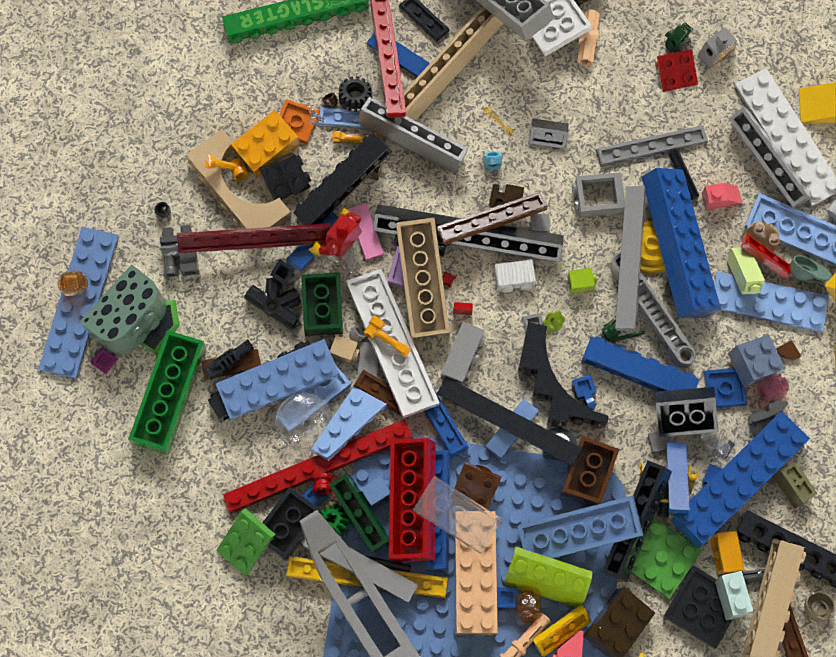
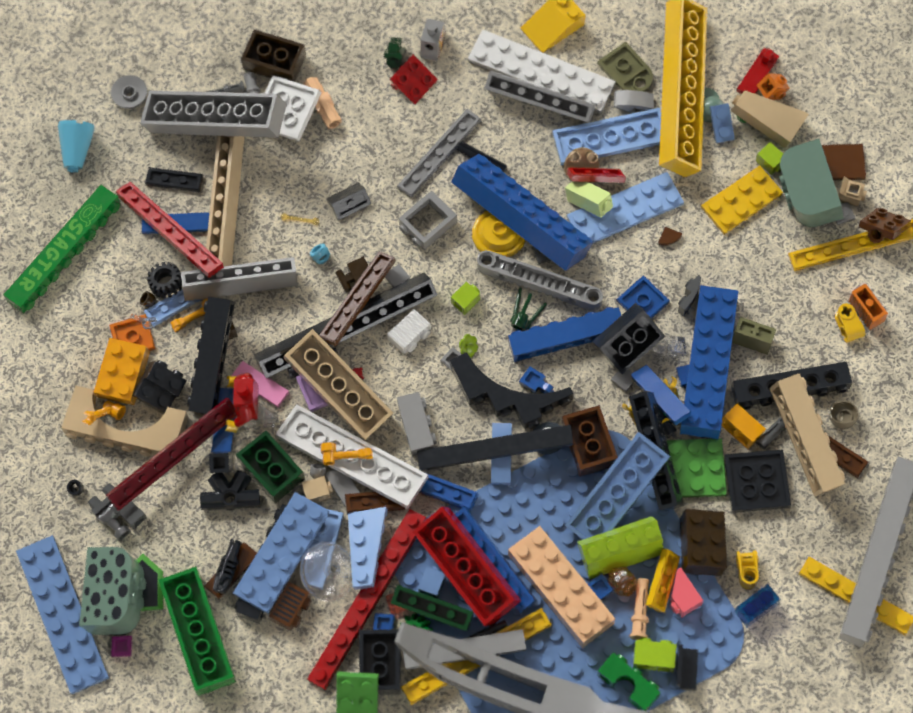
camera: 30 degrees left, 5 degrees down
(73, 283) = (46, 600): clear orange head -> none
(253, 427) = (290, 607): none -> reddish brown brick
(322, 483) = (383, 608): red wheel -> none
(457, 514) = (512, 549): clear tile -> none
(462, 308) = (387, 387): red tile -> none
(478, 484) = (508, 519): reddish brown plate -> none
(630, 258) = (492, 251): light grey tile -> none
(721, 196) = (524, 154): coral slope -> none
(733, 595) = (774, 452): light aqua brick -> none
(756, 360) = (651, 261): sand blue brick -> none
(773, 388) = (679, 273): clear pink brick -> none
(806, 269) = (635, 163): sand green cap -> none

